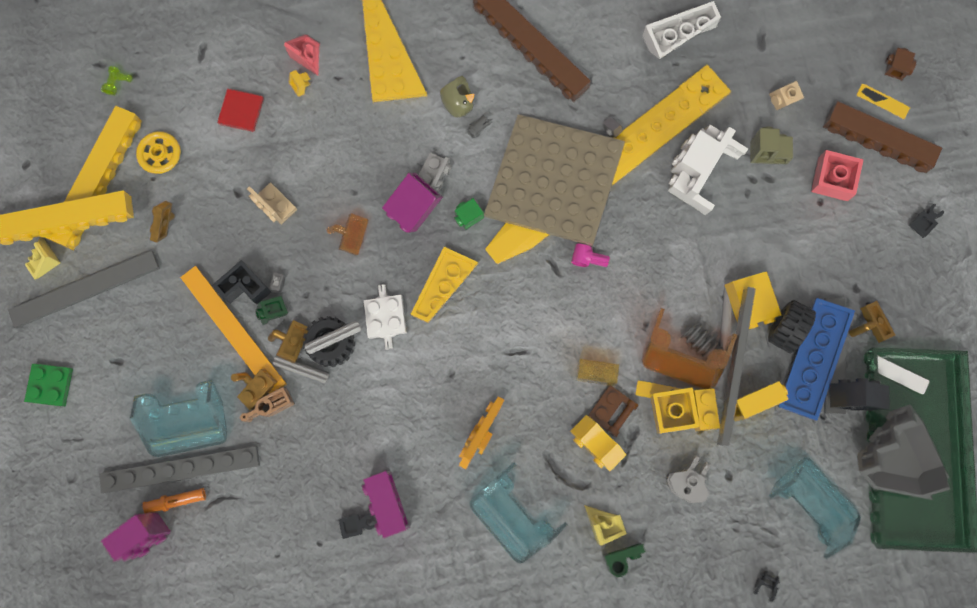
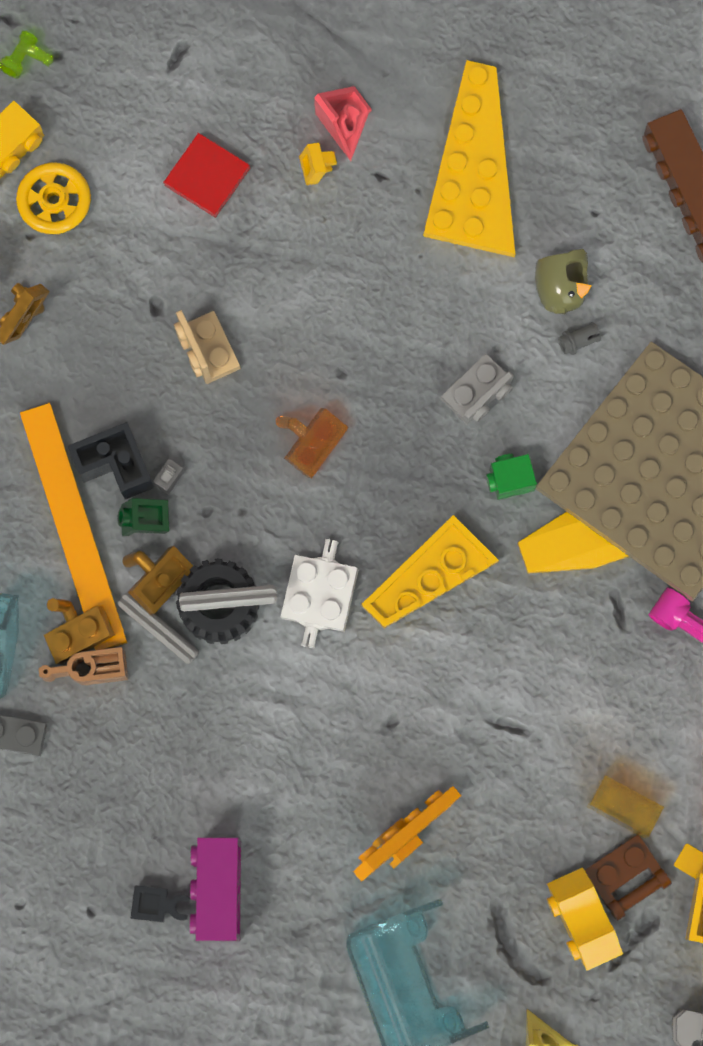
camera: 20 degrees right, 0 degrees up
(411, 202) = (427, 426): magenta brick -> none

